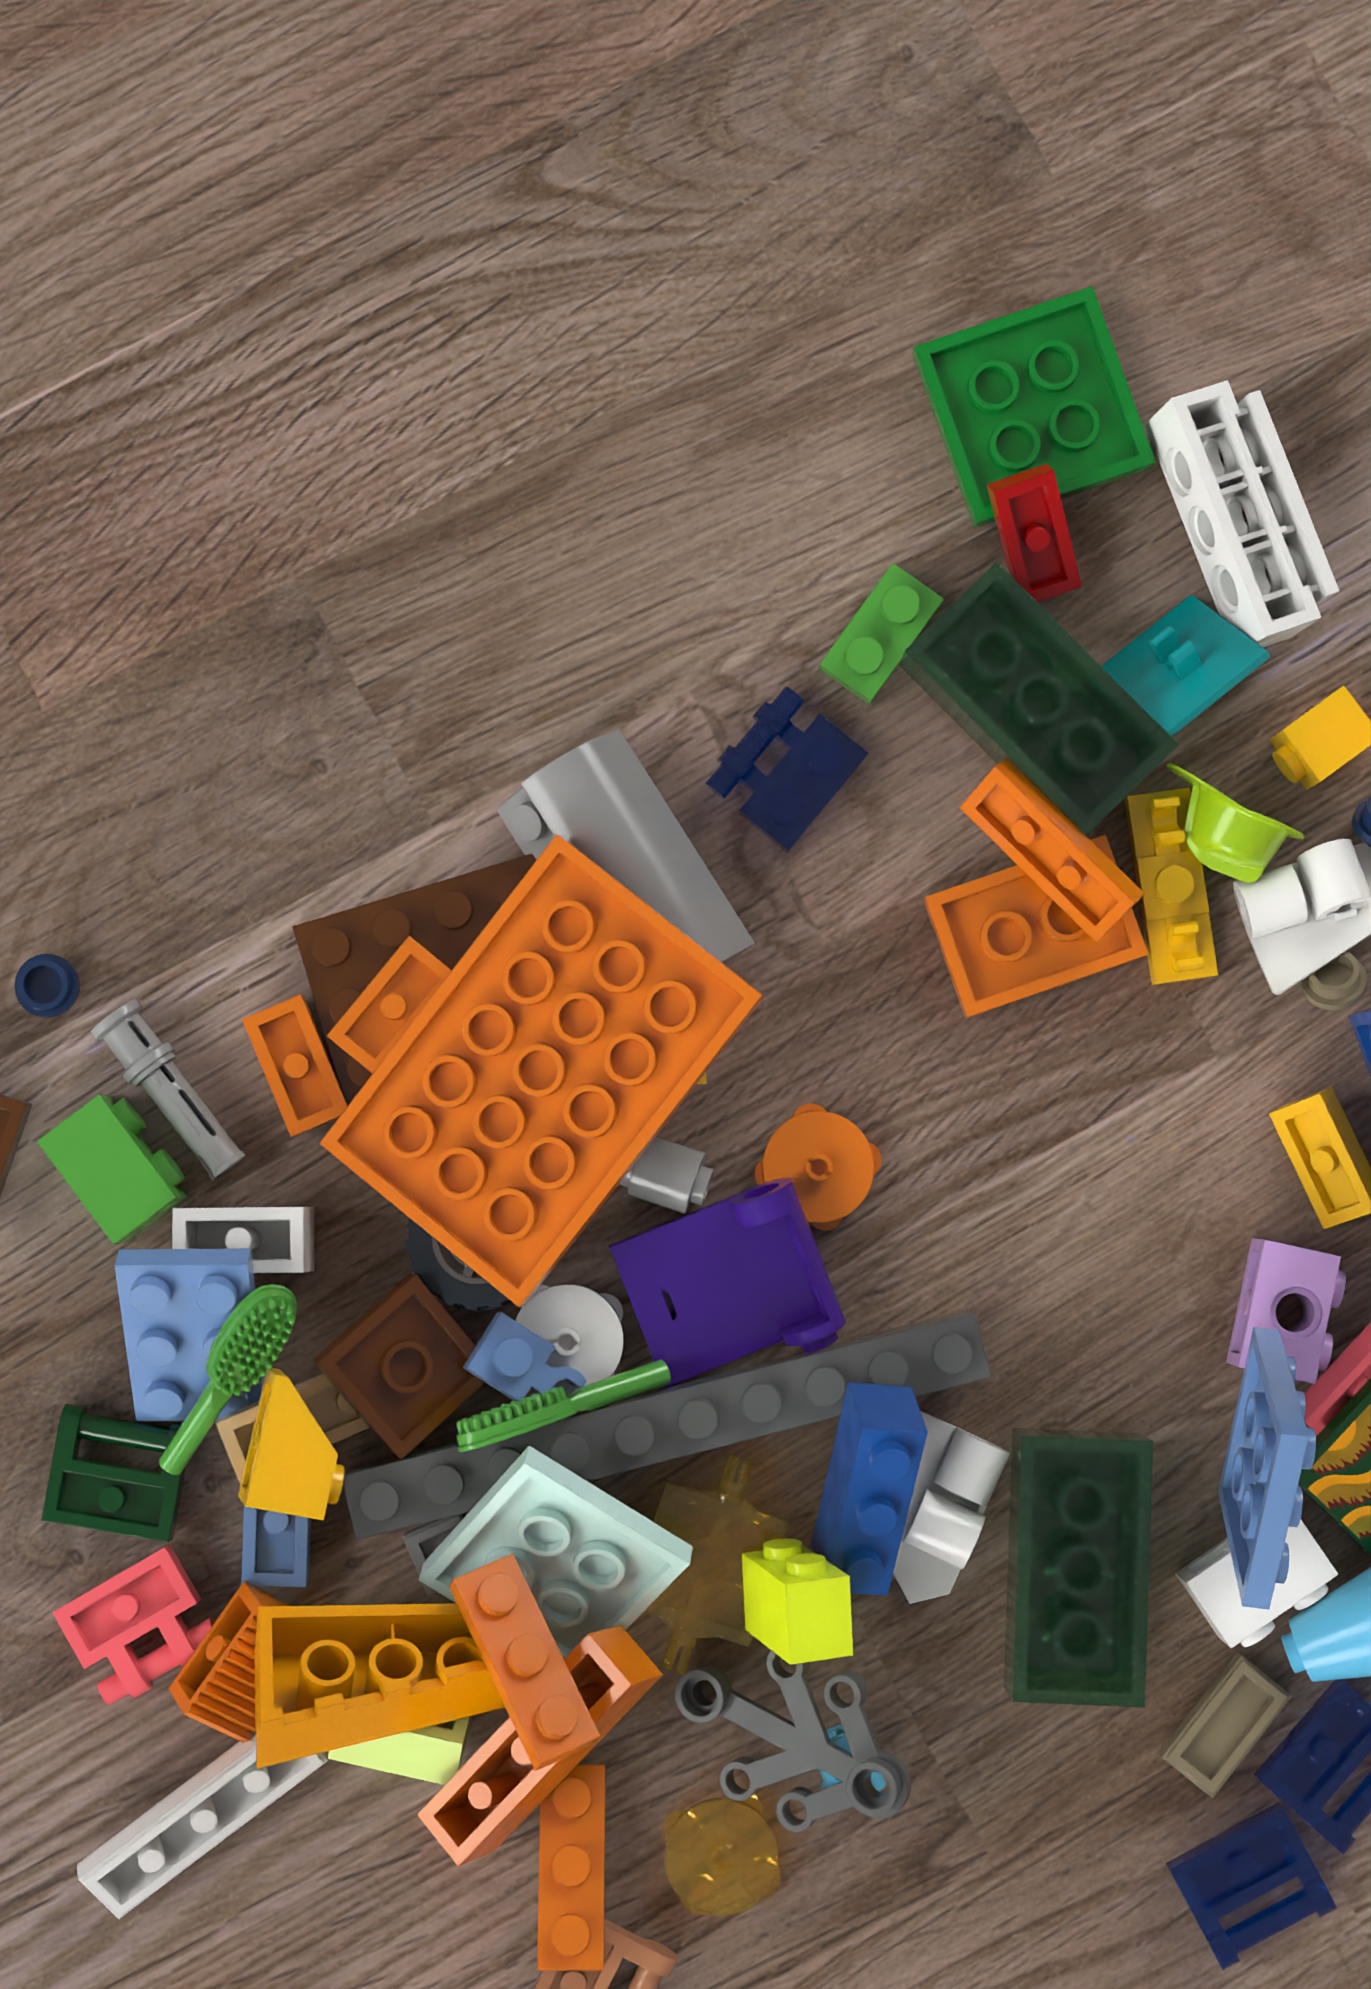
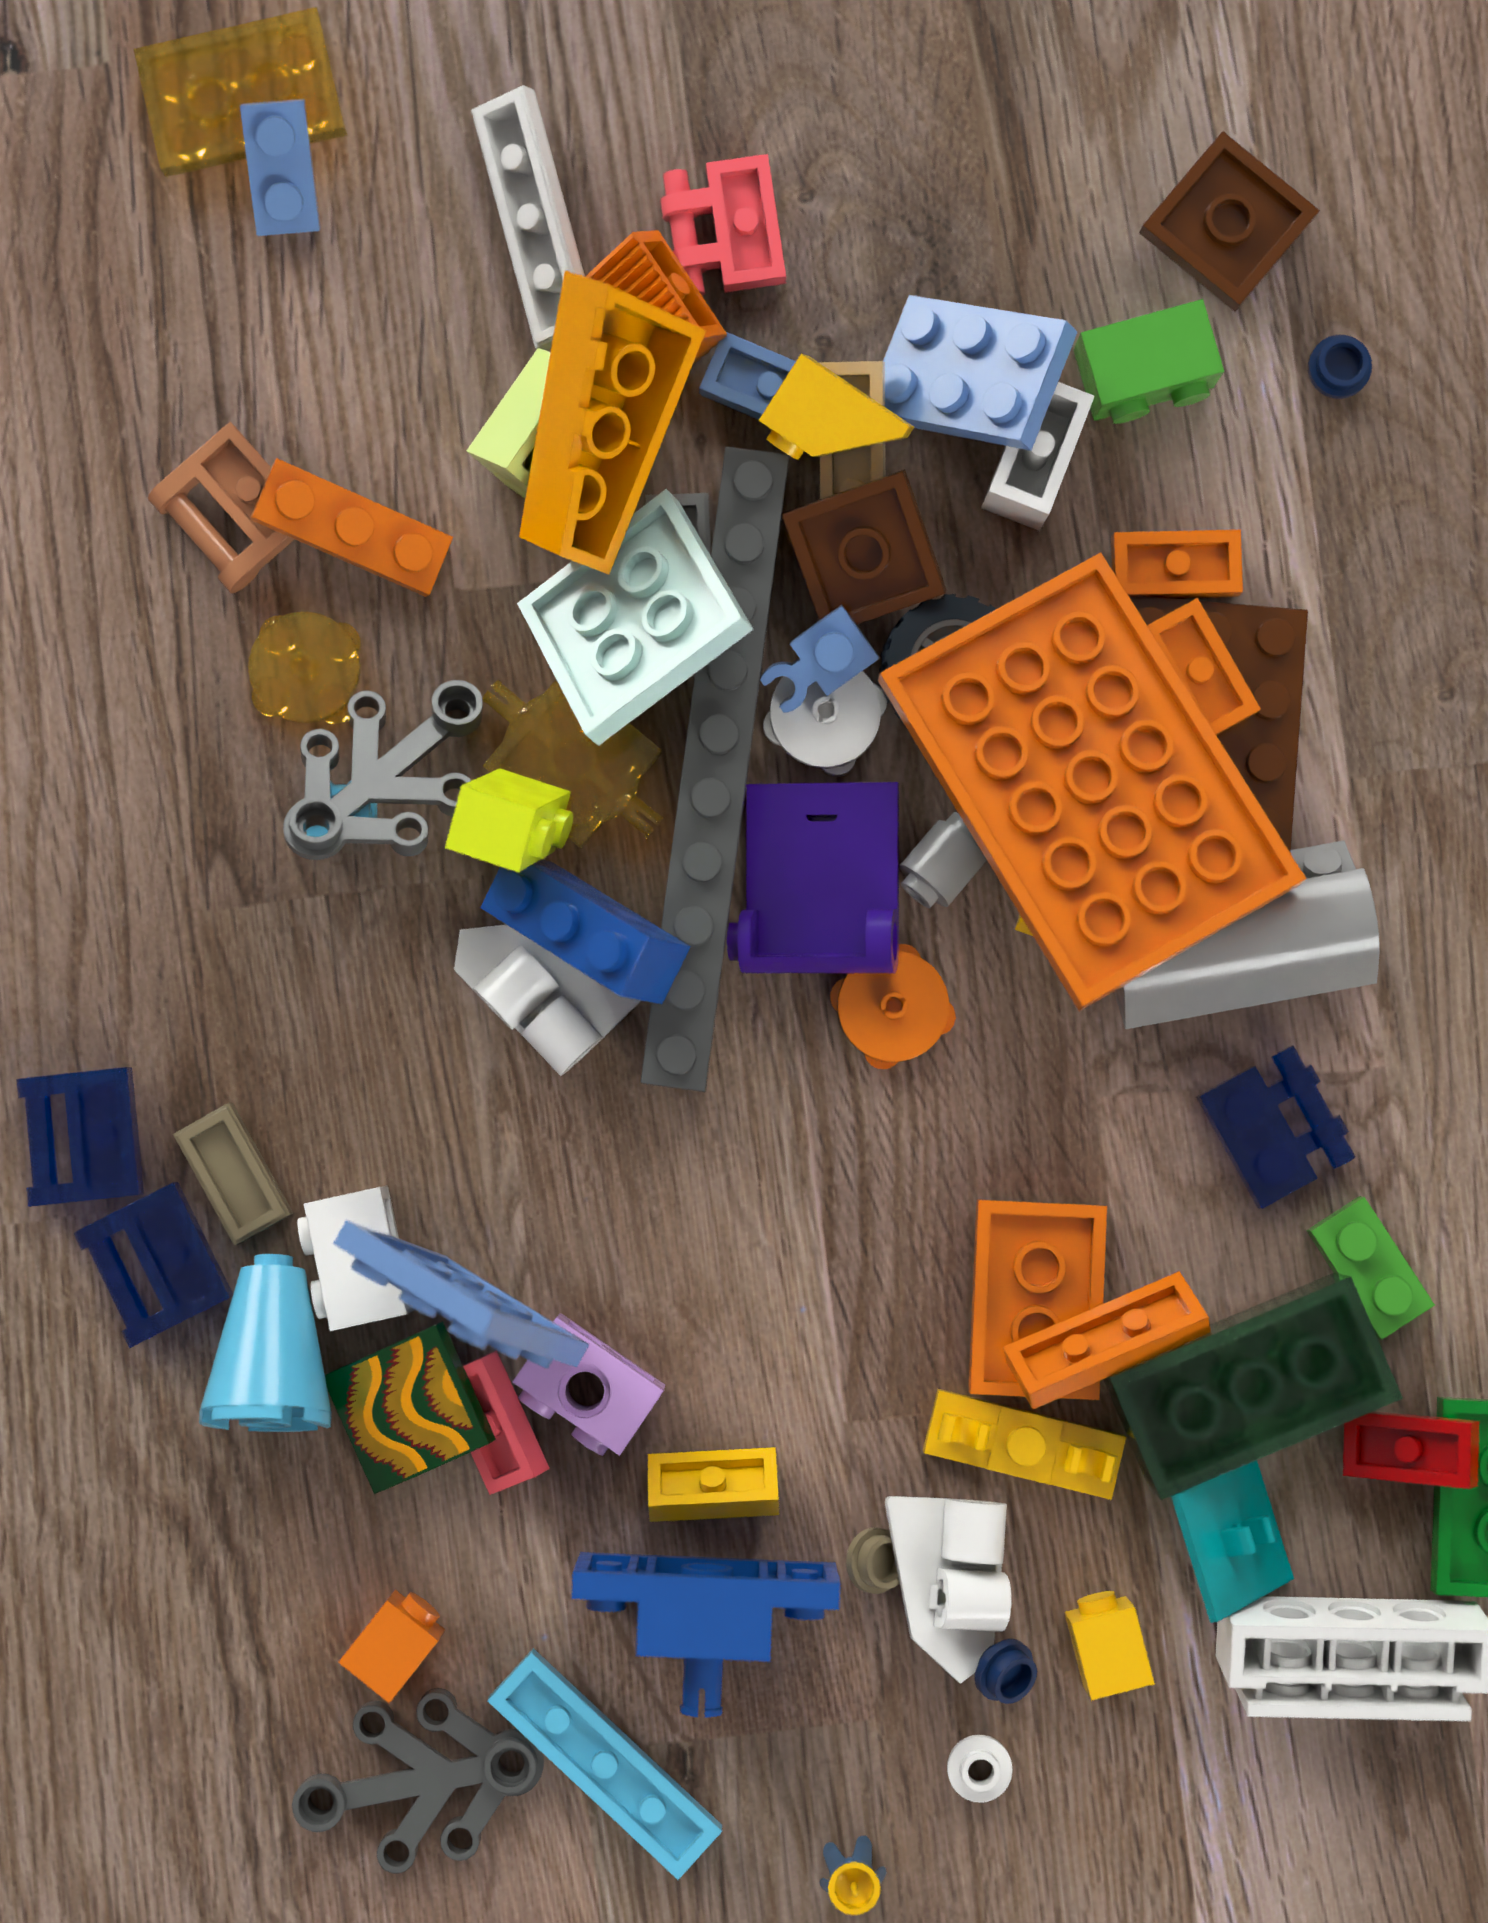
camera: 110 degrees right, 0 degrees up
(107, 1493) = (851, 248): dark green plate -> none
(151, 1065) = (1227, 432): light grey pin -> none
(236, 1361) = (934, 402): bright green piece -> none
(499, 1781) = (476, 539): orange brick -> none
(524, 1661) = (560, 548): orange plate -> none
(554, 1405) = (776, 673): bright green piece -> none
(1078, 1567) = (433, 1094): clear green brick -> none
(1227, 834) = (1053, 1515): lime piece -> none

